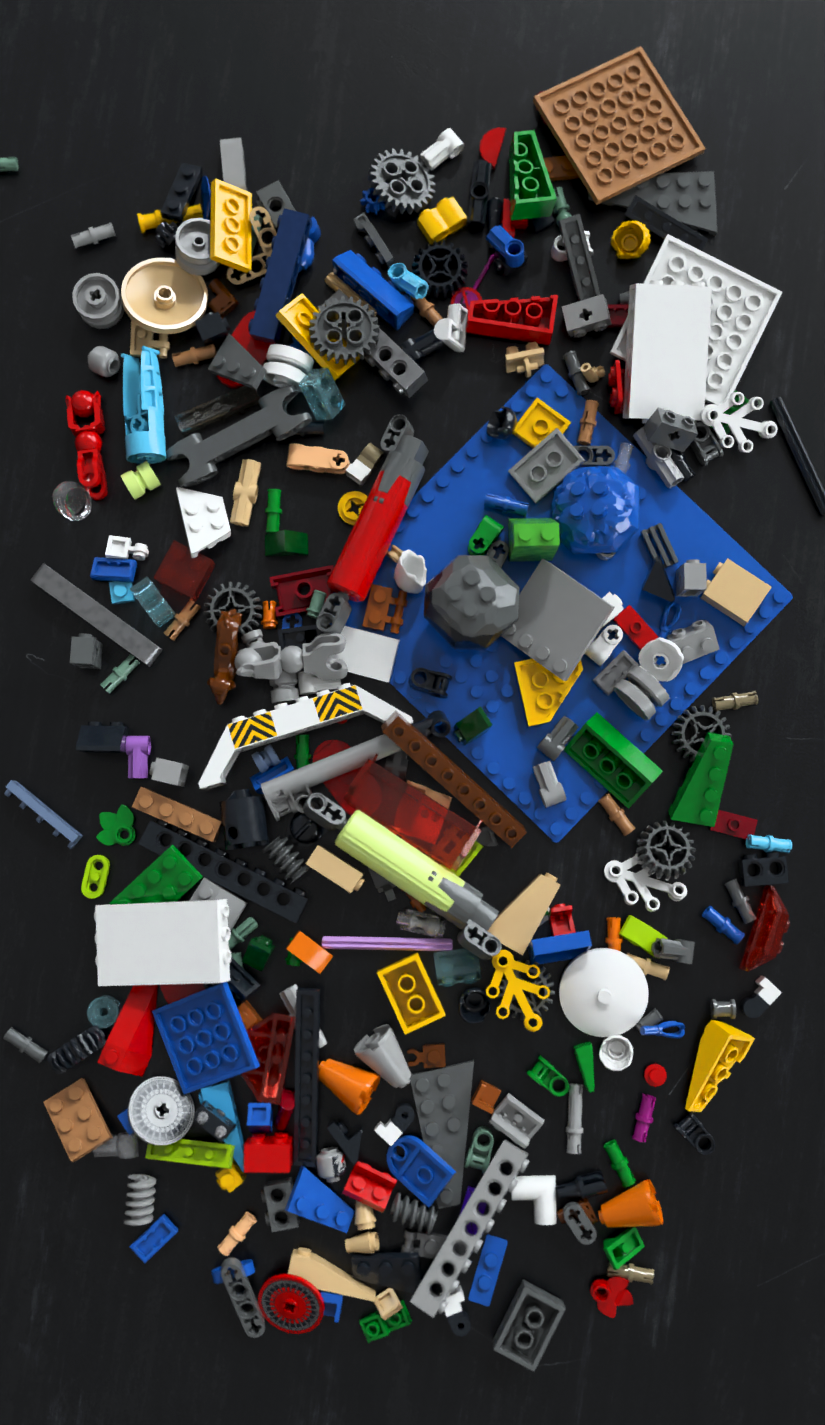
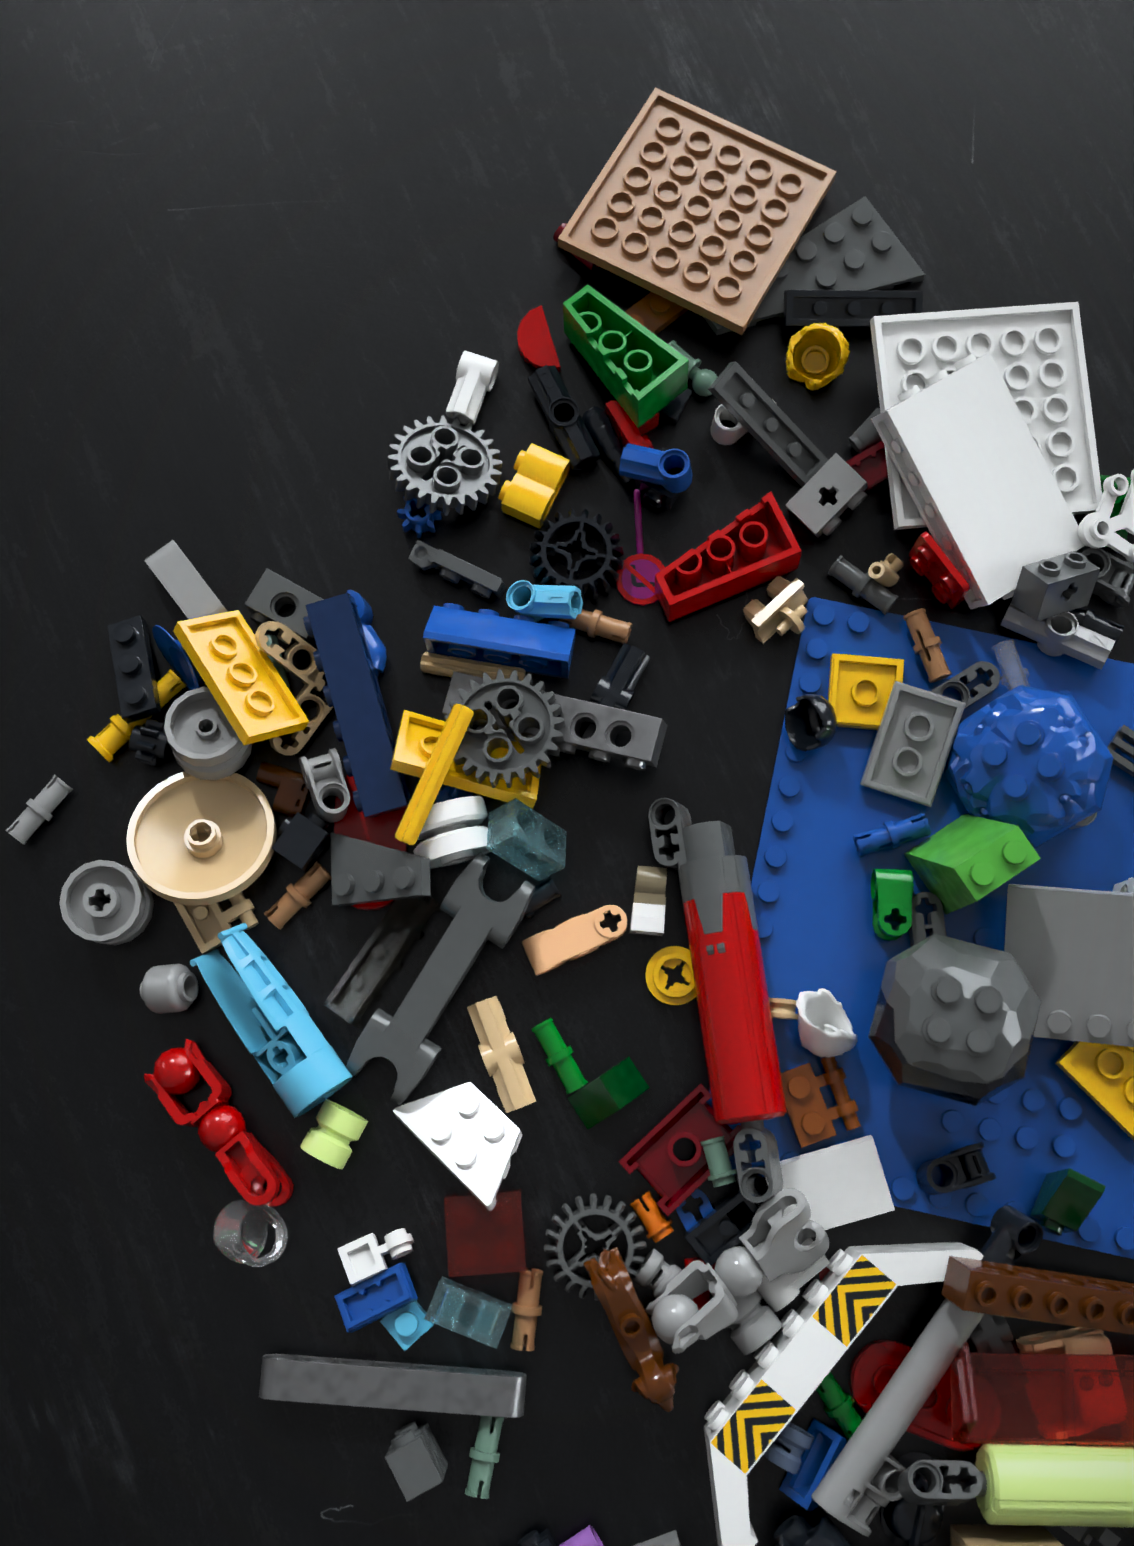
camera: 30 degrees left, 5 degrees down
(242, 305) = (323, 779): none -> light grey piece
(294, 330) = (434, 774): none -> yellow axle
(453, 328) = (652, 630): white brick -> none

